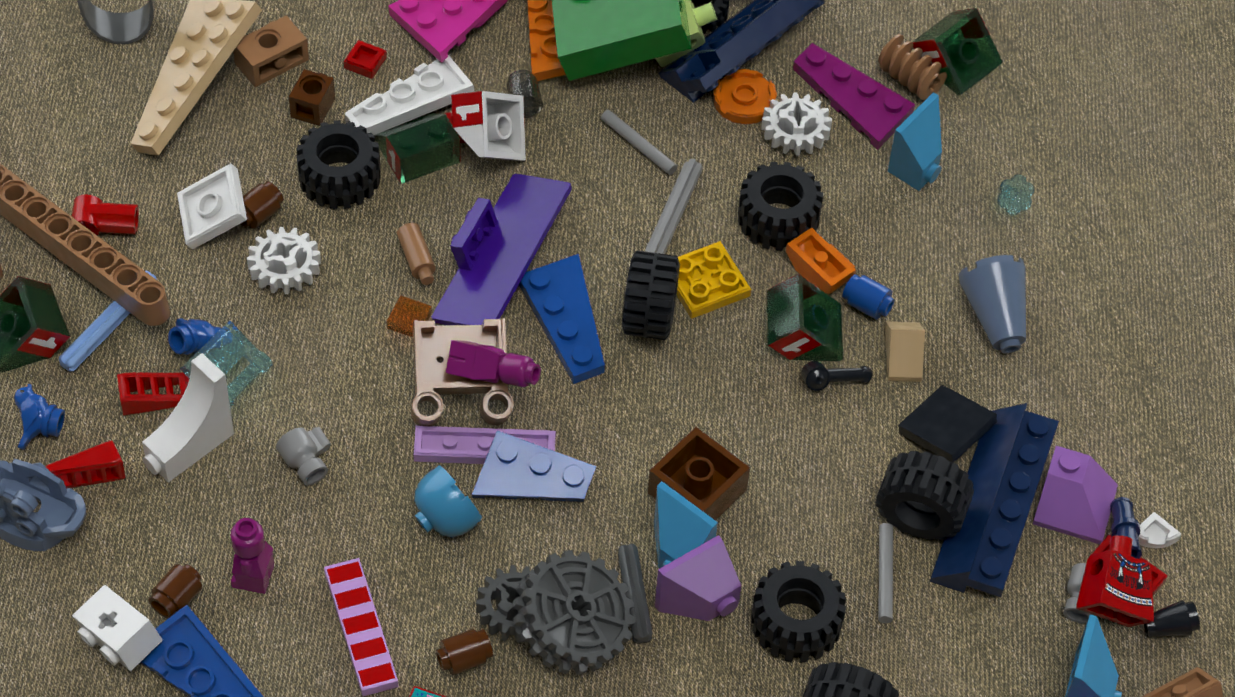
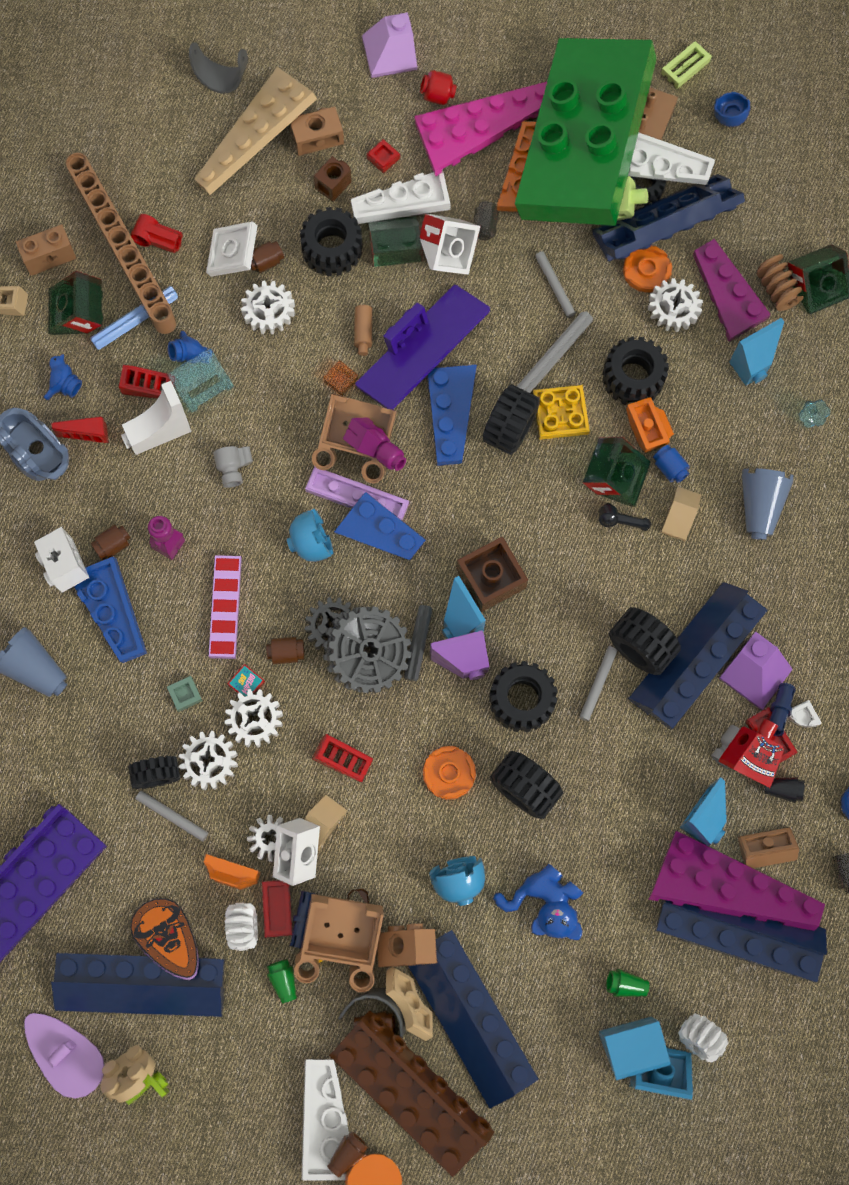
camera: 20 degrees right, 20 degrees up
(947, 423) = (688, 583): black tile -> none

